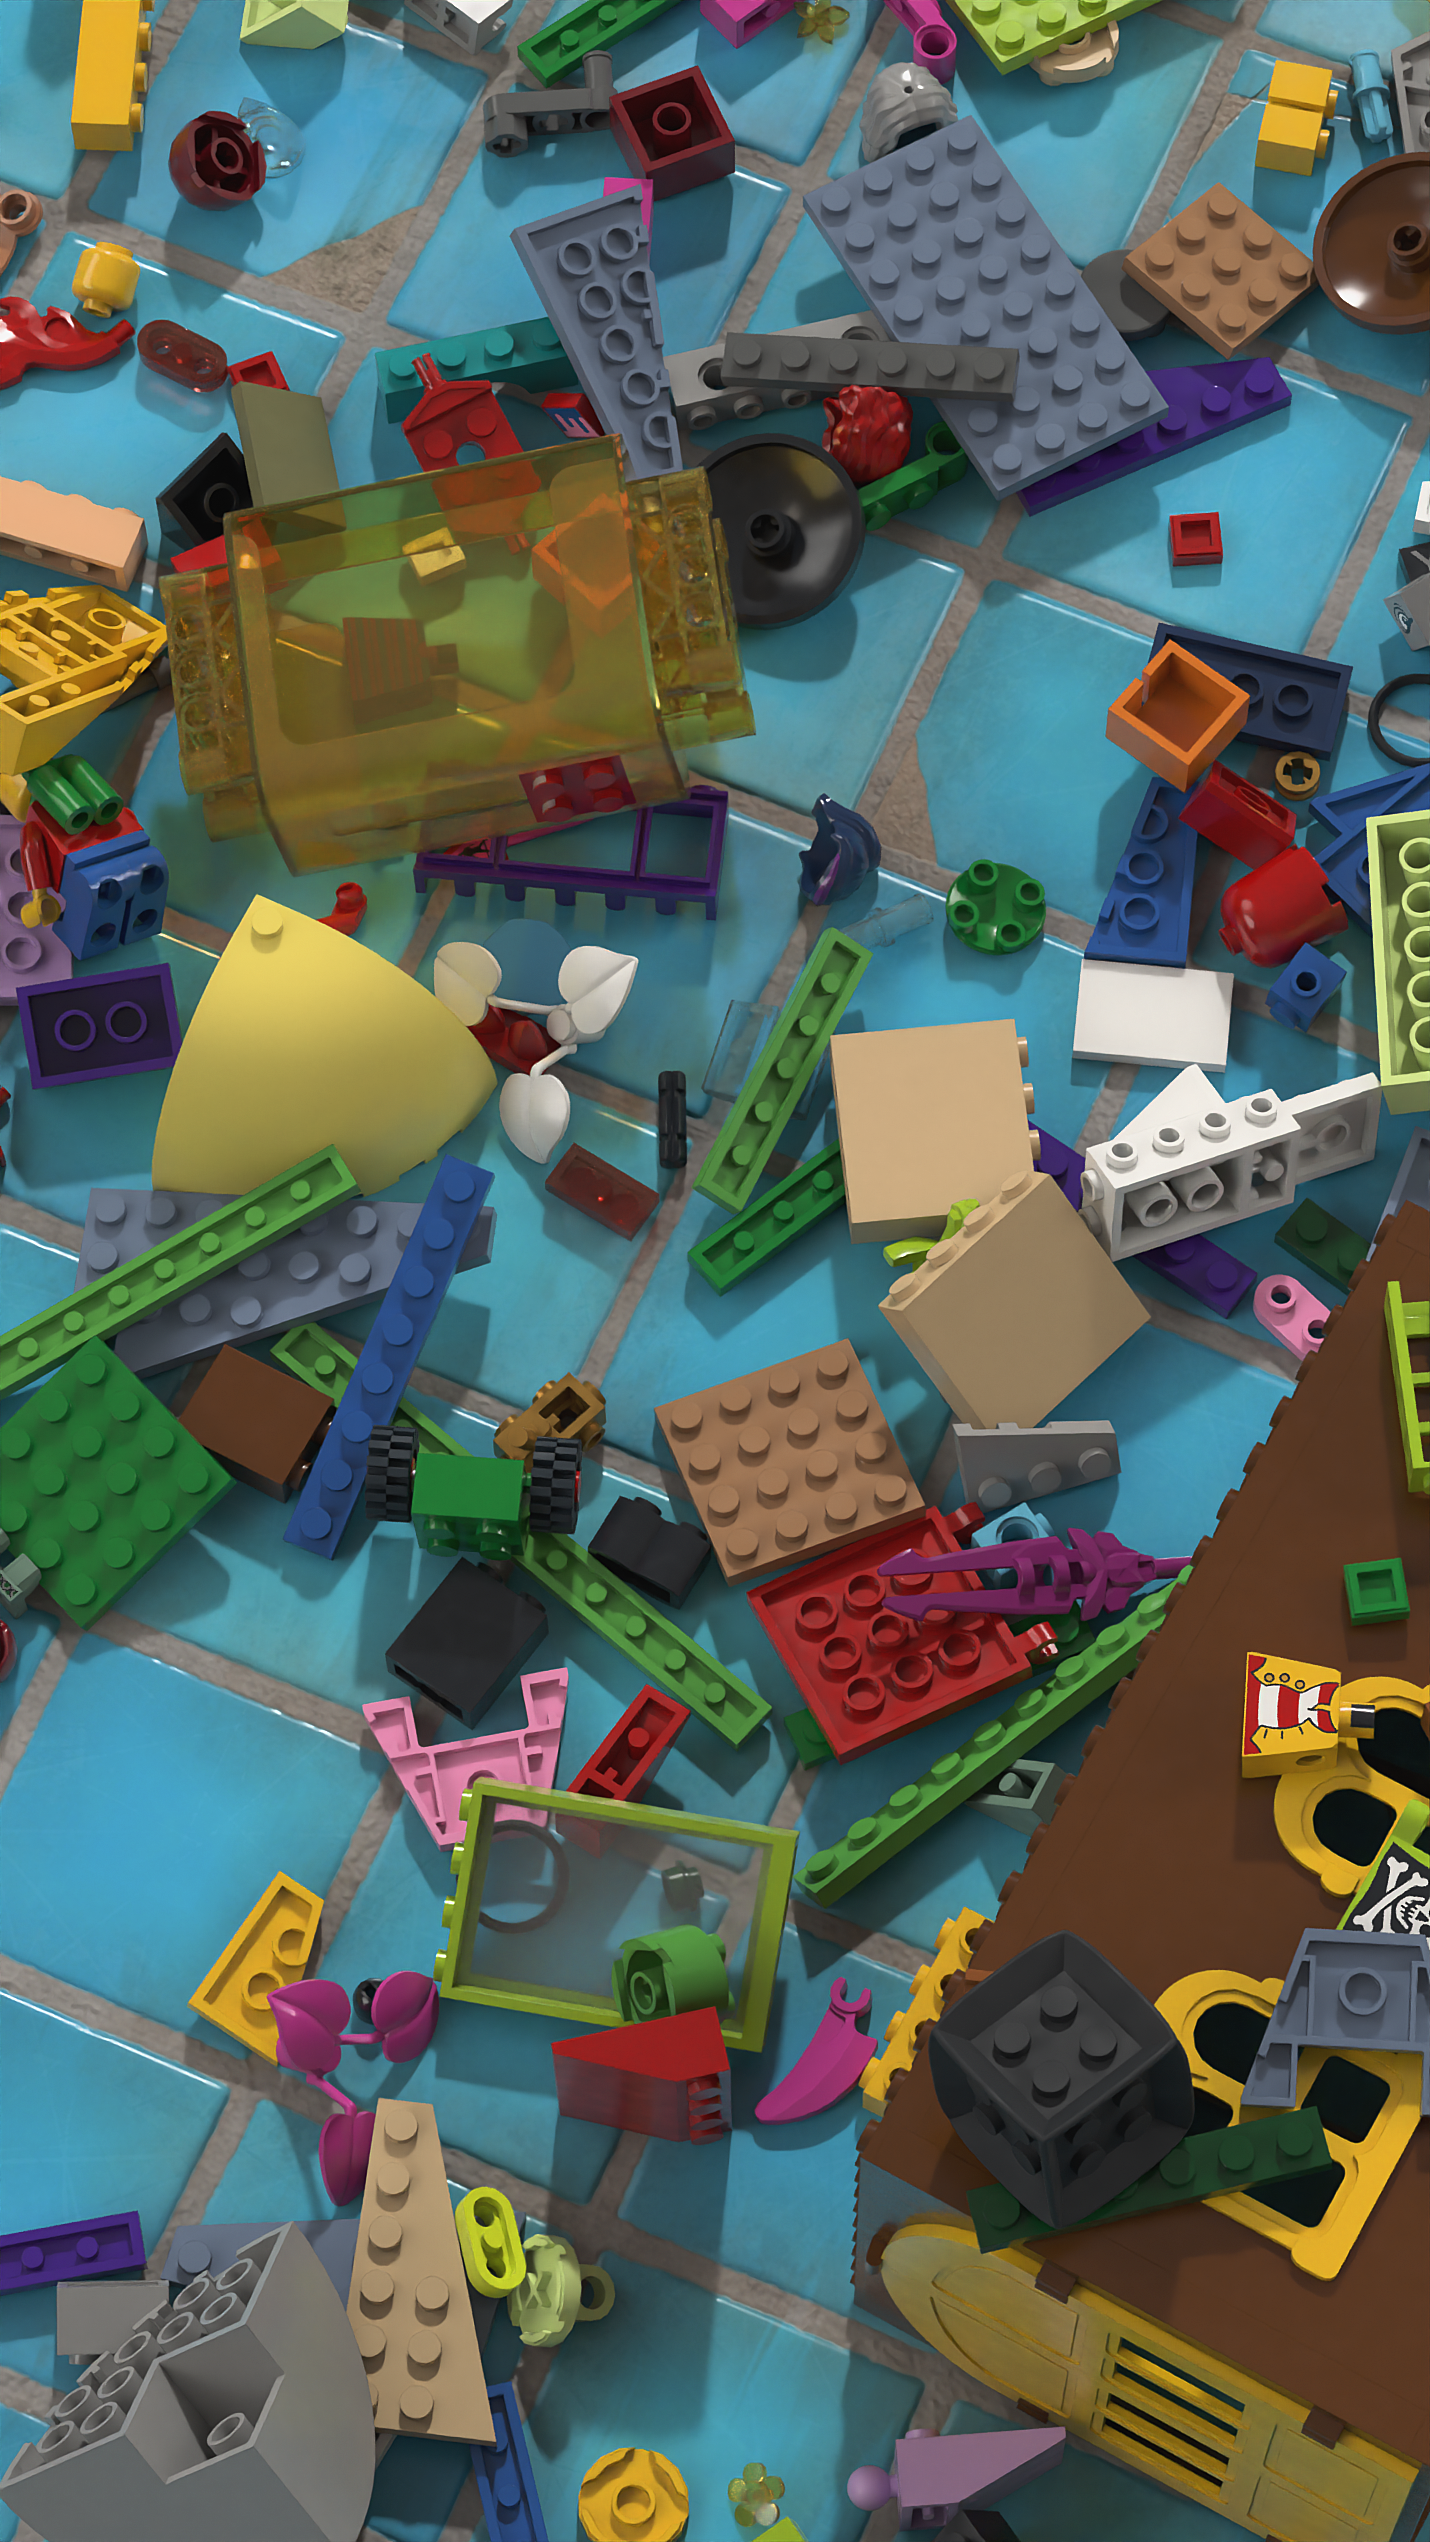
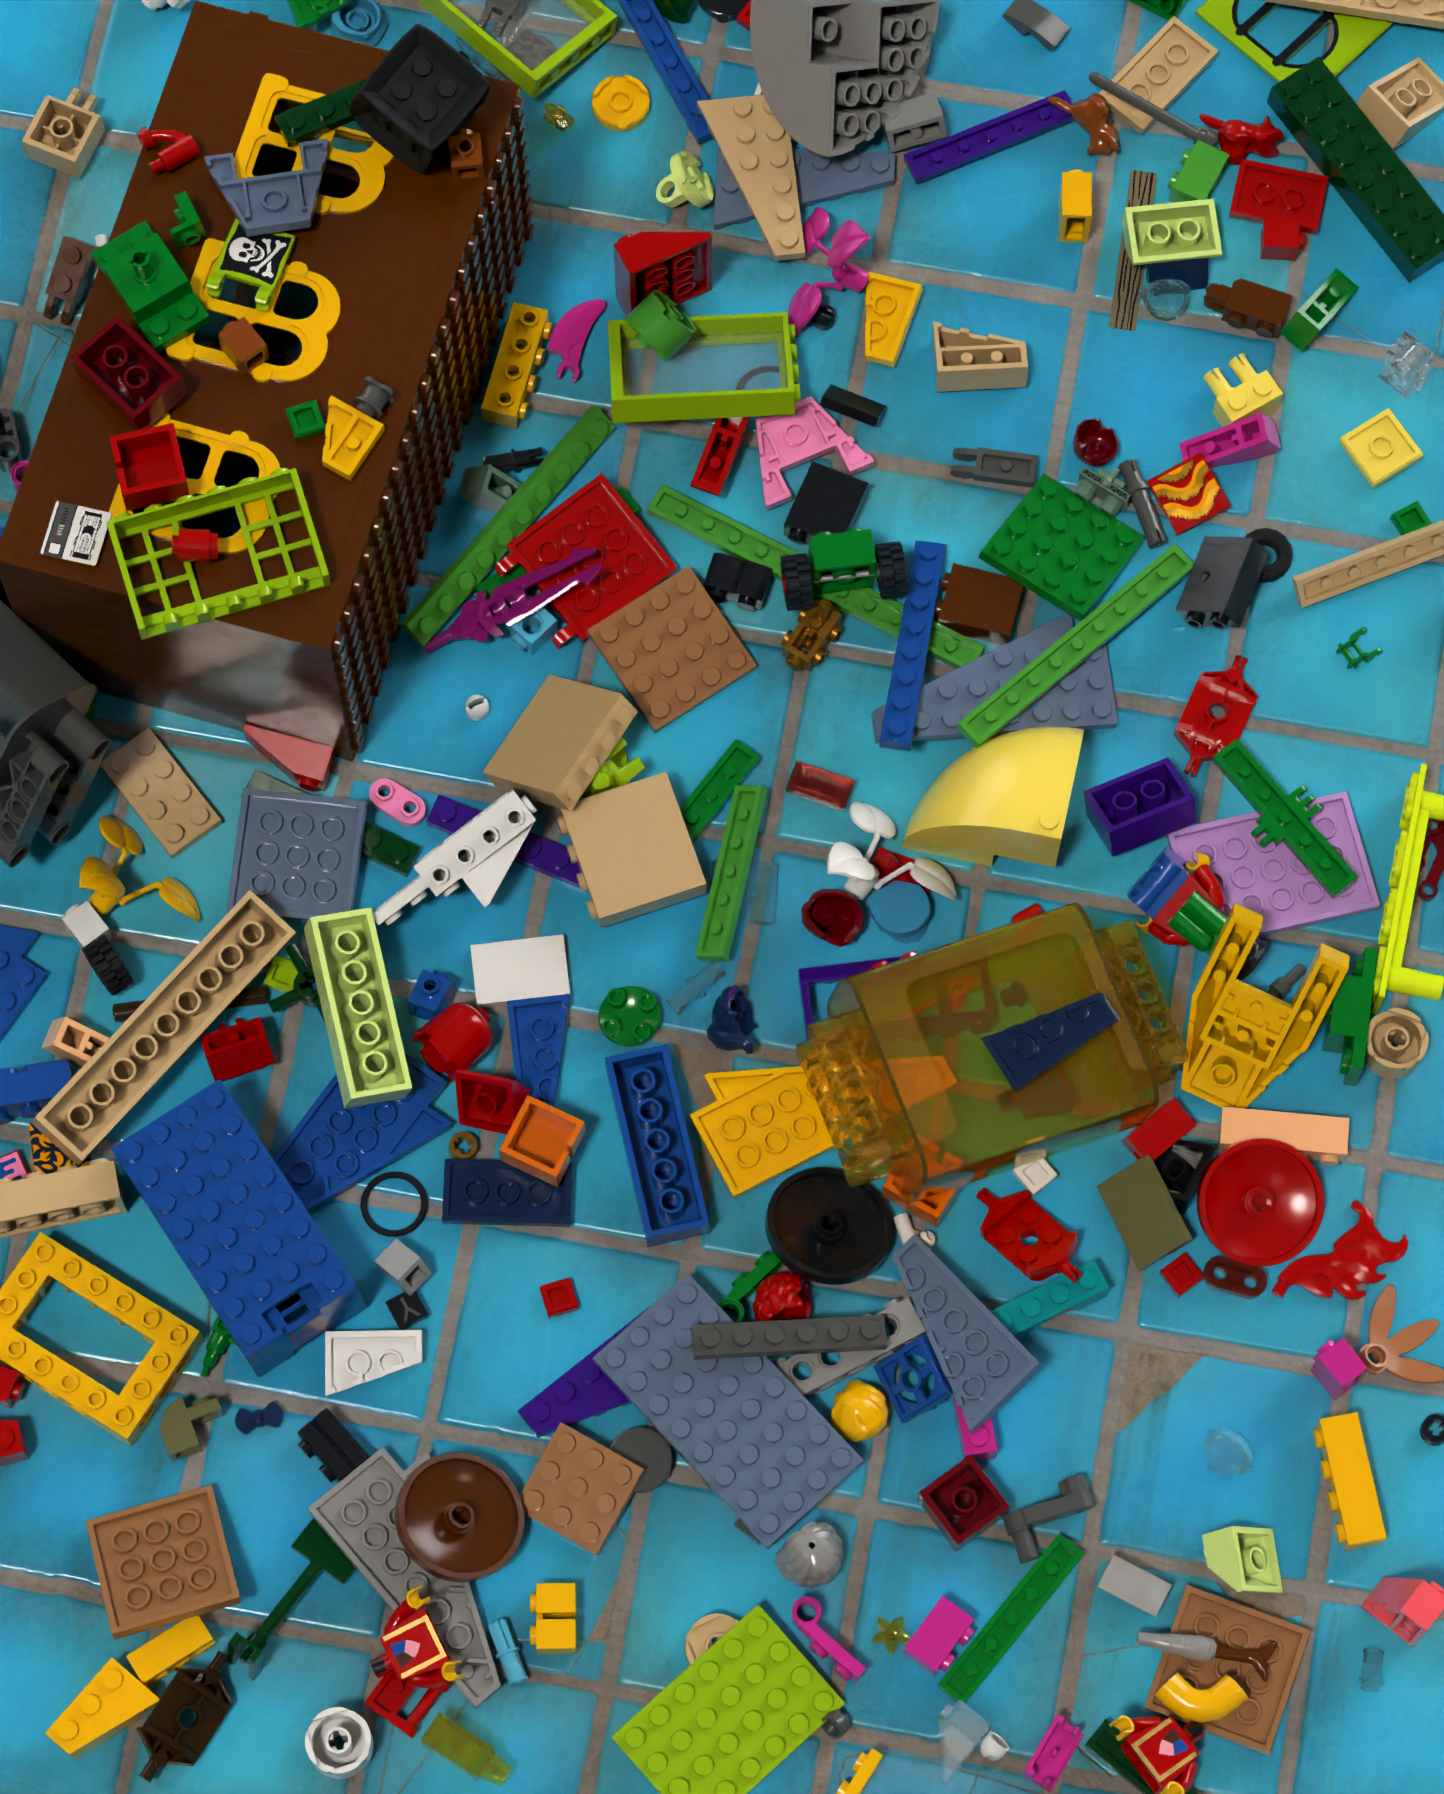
camera: 165 degrees right, 5 degrees up
(76, 187) = (1337, 1367): none -> dark pink brick
(105, 279) = (1300, 1318): yellow head -> none
(110, 432) = (1260, 1202): none -> red dish
(138, 1837) = (977, 361): none -> tan wedge
(155, 1657) = (996, 466): none -> dark grey hinge
(216, 162) = (1253, 1409): dark red cylinder -> none
(367, 619) = (1041, 1043): none -> dark blue wing
(369, 1817) = (853, 405): none -> black tile
(490, 2246) = (727, 197): neon yellow plate -> none
(573, 415) = (976, 1284): tile -> none
(660, 973) = (833, 916): none -> dark red hair
(672, 1119) = (790, 842): black axle -> none
(675, 285) = (886, 1372): none -> blue piece
(787, 285) = (859, 1411): none -> yellow hair
(829, 711) = (761, 1125): none -> yellow wing
(977, 1851) = (514, 460): none -> black axle
(999, 698) = (657, 1145): none -> blue brick
(1027, 1463) = (544, 668): light grey wing -> none
(1137, 1455) = (478, 712): none -> white hinge
(1251, 1594) = (373, 398): none -> dark grey brick
(1296, 1717) = (335, 337): torso -> none
(1307, 1539) = (348, 438): none -> yellow wing

